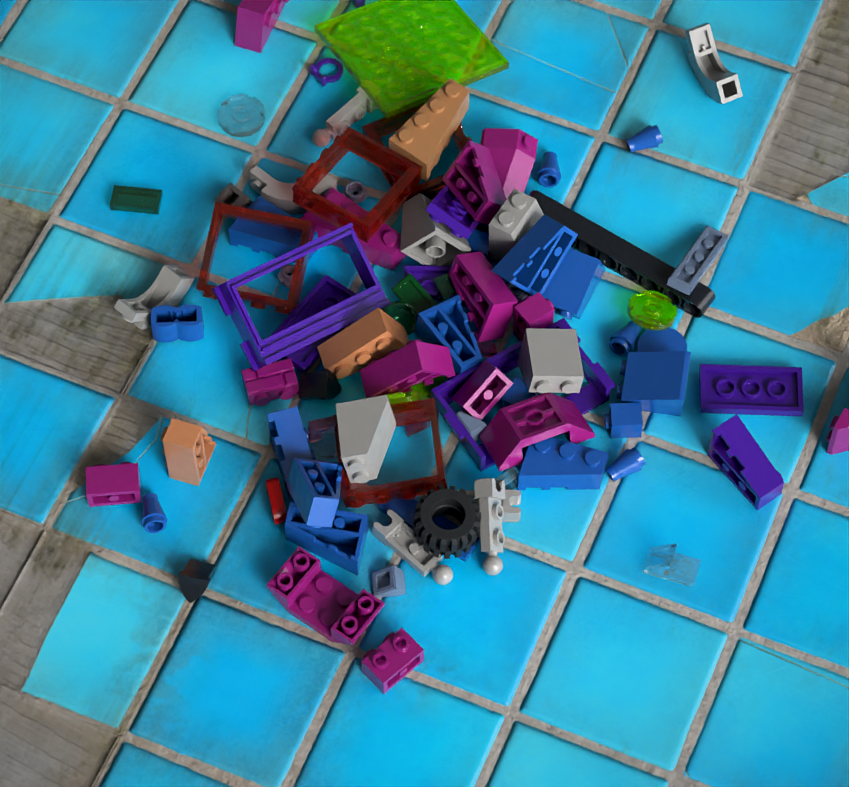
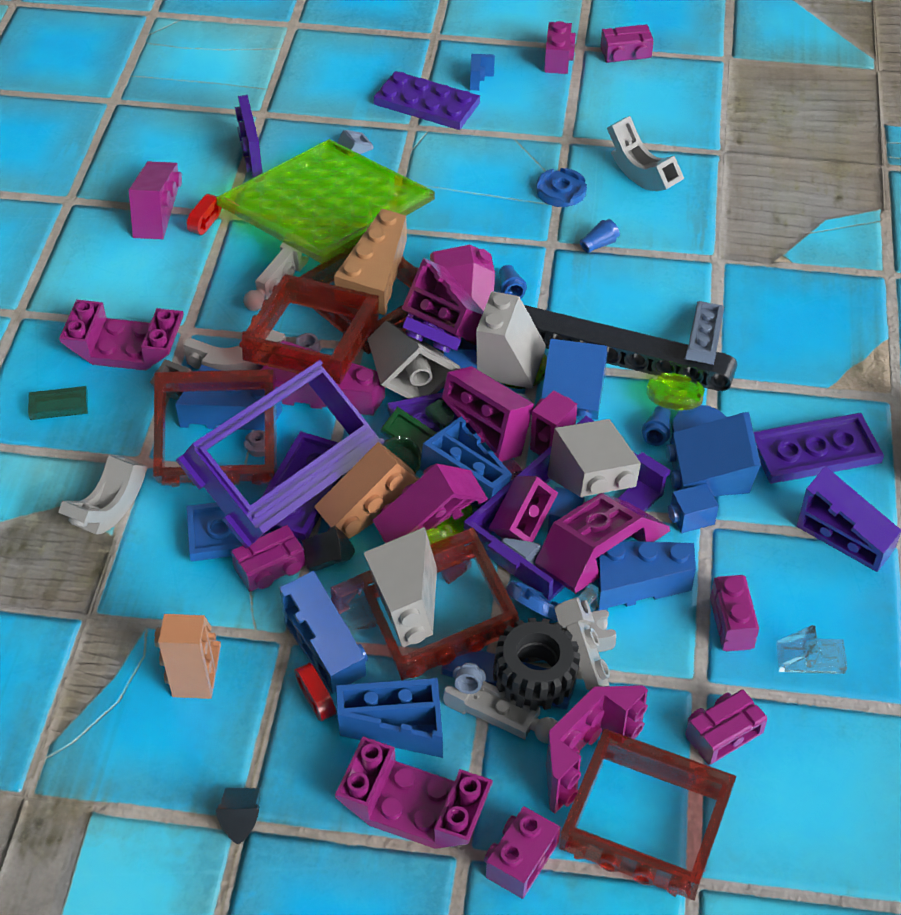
camera: 15 degrees left, 10 degrees down
(113, 484) = (103, 719): magenta brick -> none
(153, 516) = (163, 745): blue cone -> none
(177, 323) = (139, 517): blue brick -> none
(198, 150) = (118, 341): none -> magenta slope
(226, 351) = (208, 533): none -> blue plate
(241, 115) = (157, 294): clear light blue tile -> none
(300, 38) = (203, 215): none -> red beam
(314, 70) = (226, 242): dark purple piece -> none
(315, 490) = (367, 661): blue wedge -> none
(388, 582) = (483, 755): sand blue slope -> none
(392, 520) = (469, 678): none -> sand blue plate
(463, 467) = (532, 599): none -> blue tile
(496, 572) = (603, 707): none -> magenta slope
(519, 623) = (668, 768): none -> clear red window
(536, 256) = (538, 354): blue wedge -> none
(578, 605) = (725, 726): none -> magenta brick
(621, 517) = (734, 613): none -> magenta brick
(626, 464) = (714, 554): blue cone -> none
(630, 77) = (561, 187): none -> blue tile

